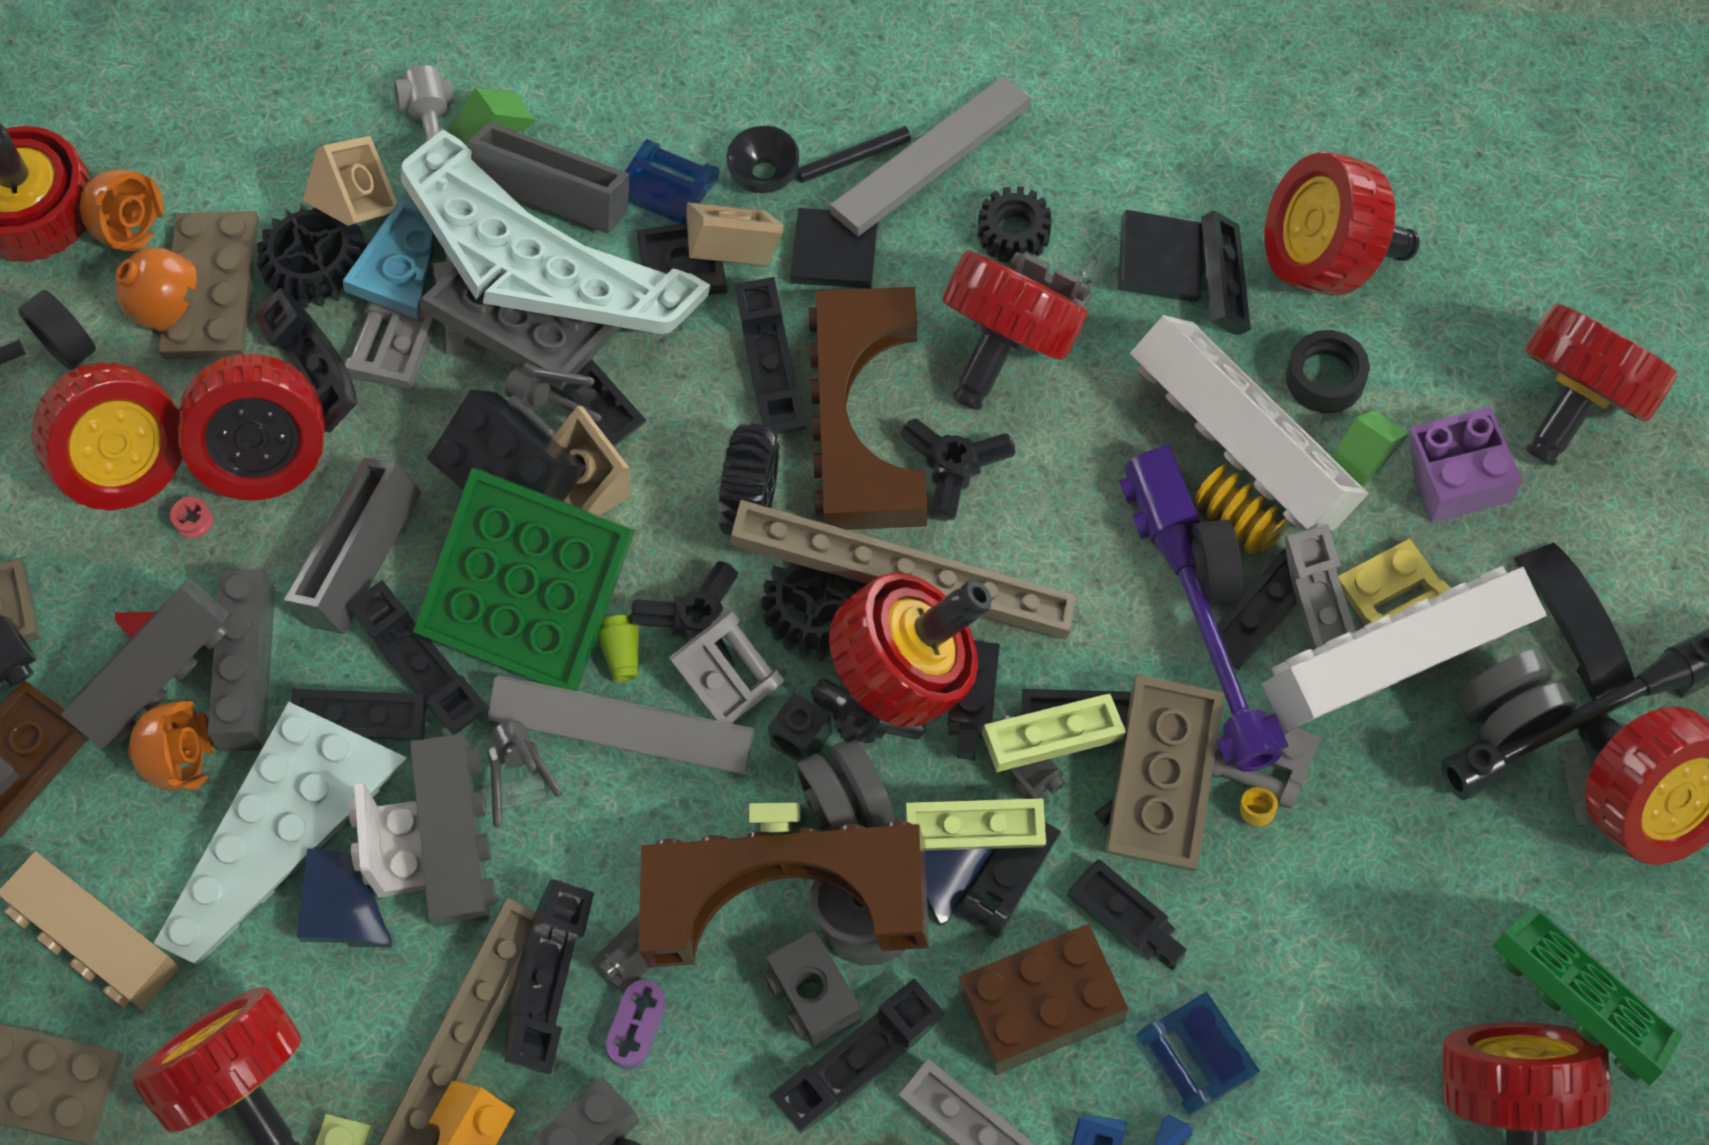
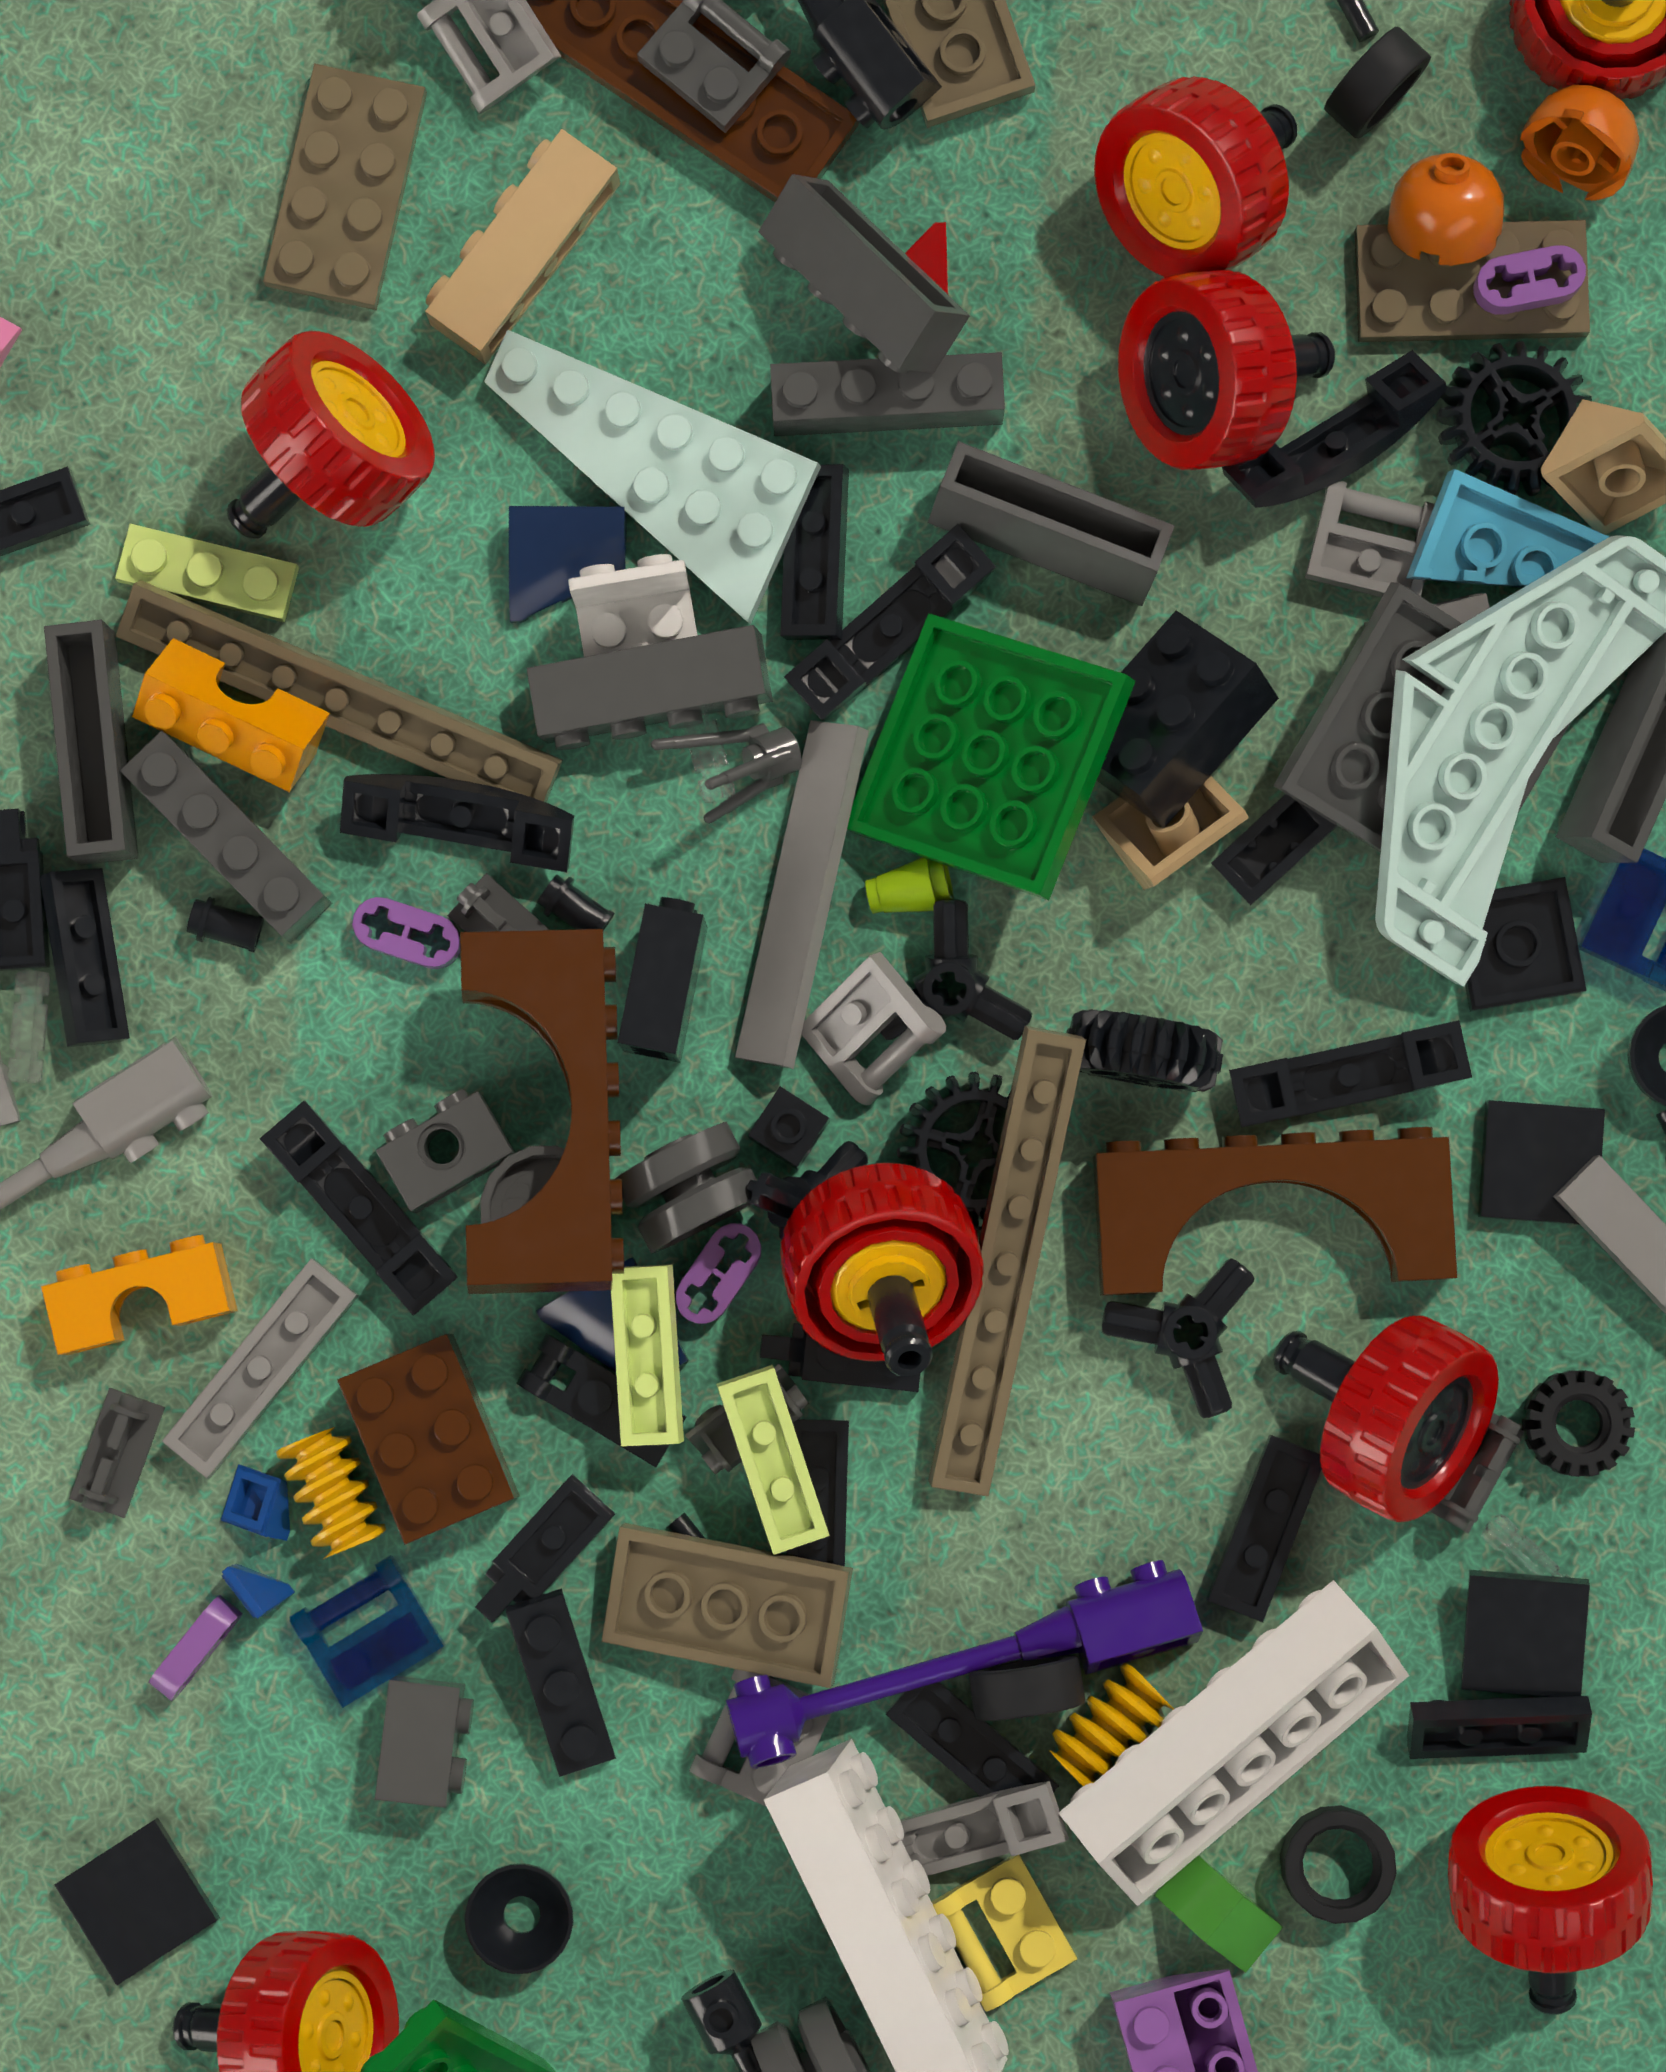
camera: 90 degrees right, 20 degrees up
(164, 740) = (761, 316): orange cylinder -> none
(194, 506) = (1121, 301): coral bush -> none
(206, 240) = (1527, 266): none -> medium lavender beam
(529, 390) = (1276, 747): dark grey plant -> none
(621, 894) = (573, 905): none -> black pin
(680, 808) = (663, 980): none -> black brick
(732, 234) = (1559, 1013): tan slope -> none
(775, 816) = (652, 1099): yellowish green plate -> none
(915, 777) = (730, 1282): none -> medium lavender beam
(1088, 1075) = (331, 1491): none -> yellow piece
(1093, 415) = (1265, 1528): none -> black plate
(1230, 899) = (560, 1682): none -> black plate
(1258, 801) = (698, 1726): yellow hinge -> none
(1283, 1005) = (422, 1742): none -> dark grey brick
(1426, 909) = (499, 1943): none -> black piece

